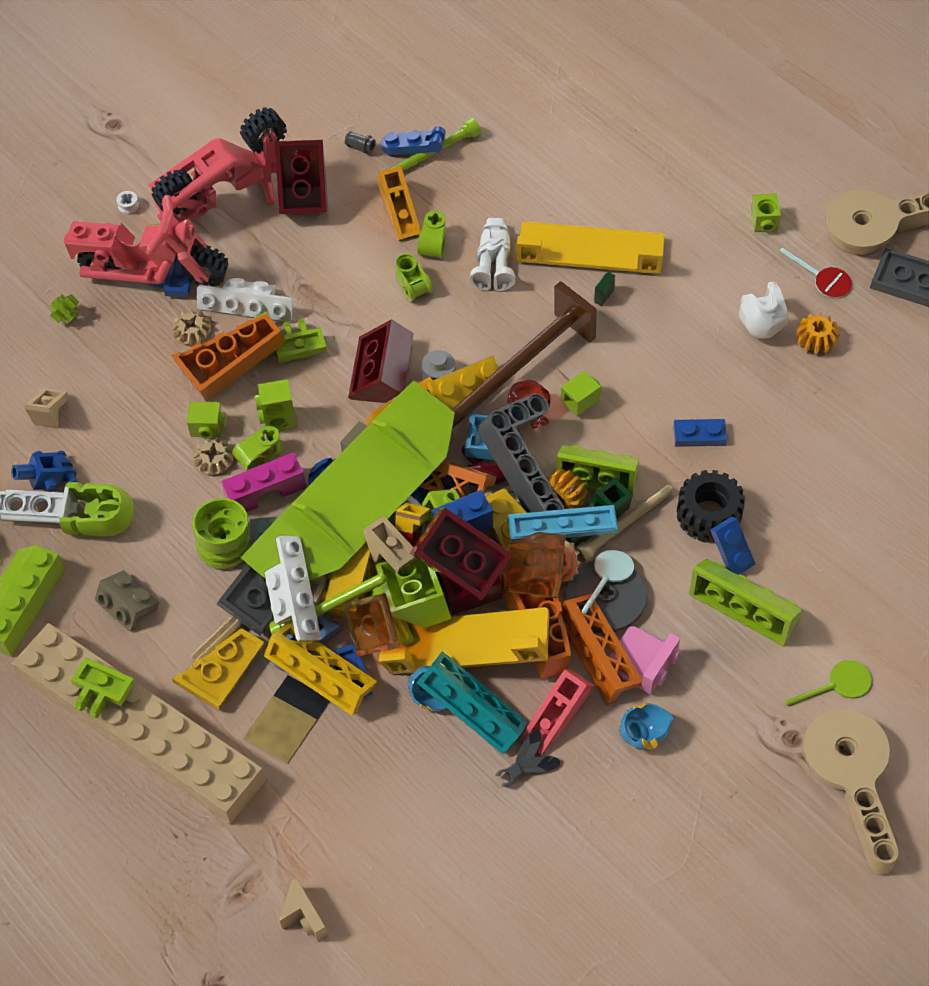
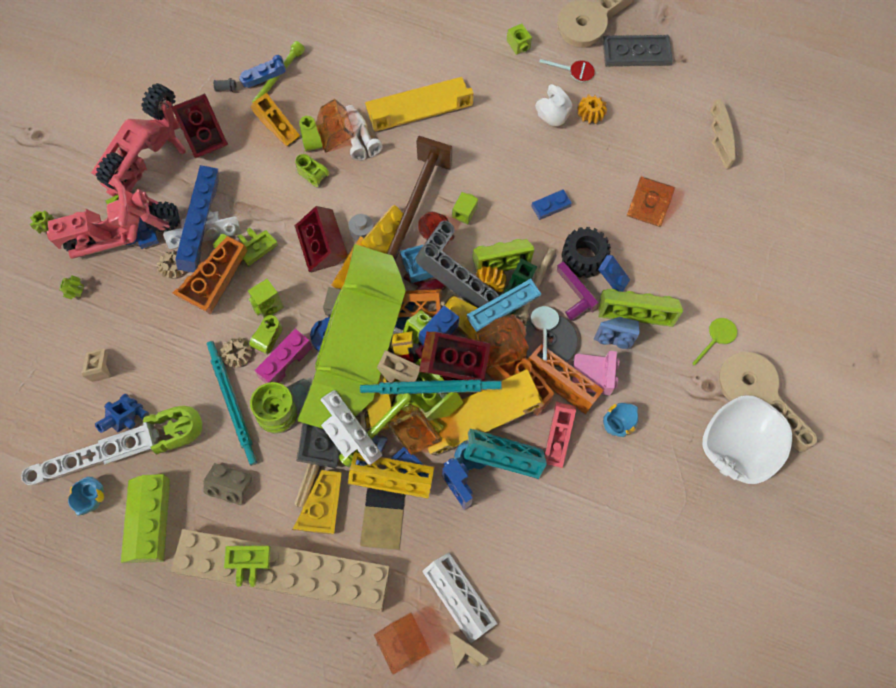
camera: 30 degrees left, 10 degrees up
(65, 220) = (40, 221): none -> lime gear
(127, 208) = (79, 194): white bush -> none
(178, 510) = (231, 402): none -> teal axle
(206, 419) = (218, 328): lime brick -> none
(226, 303) = (193, 231): none -> blue arch
(234, 867) = (402, 643): none -> clear orange slope
(323, 845) = (457, 599): none -> white fence
(398, 706) = (456, 478): none -> blue plate
(416, 578) = (431, 387): none -> teal axle
(467, 234) = (333, 125): none -> clear orange slope
(525, 761) = (556, 477): dark grey piece -> none
(604, 288) = (443, 129): dark green tile -> none
(681, 566) = (587, 300): none -> magenta piece
(698, 618) = (618, 332): none -> medium blue slope
(797, 815) = (748, 440): none -> white piece
(835, 477) = (650, 201): none -> clear orange slope

